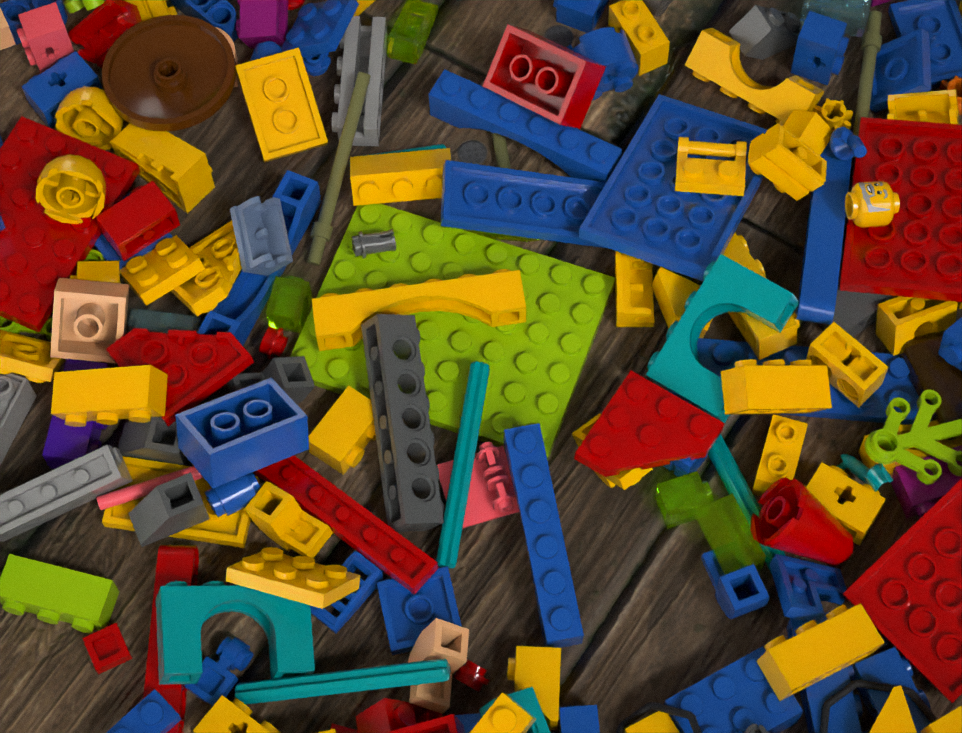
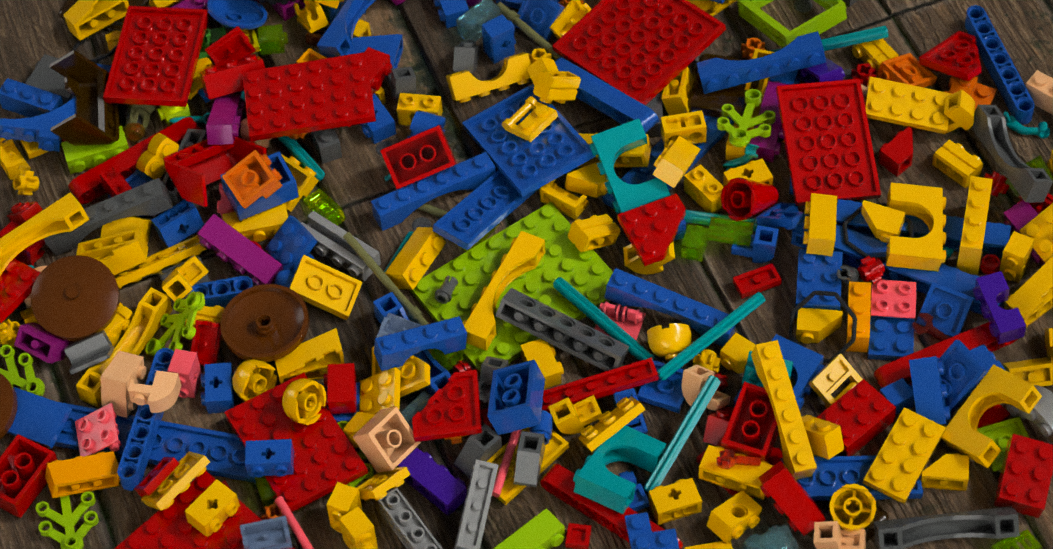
camera: 55 degrees left, 10 degrees down
(109, 395) = (446, 445): yellow brick -> none
(226, 245) = (397, 347): none -> blue arch
(486, 570) = (669, 341): none -> yellow cylinder
(490, 640) = (708, 359): none -> yellow gear
(523, 619) = (710, 336): none -> teal axle
(594, 359) = (593, 232): none -> yellow brick
(681, 622) = (757, 280): none -> red plate
(846, 144) = (565, 58): blue plate -> none
(871, 204) = (611, 64): yellow head -> none

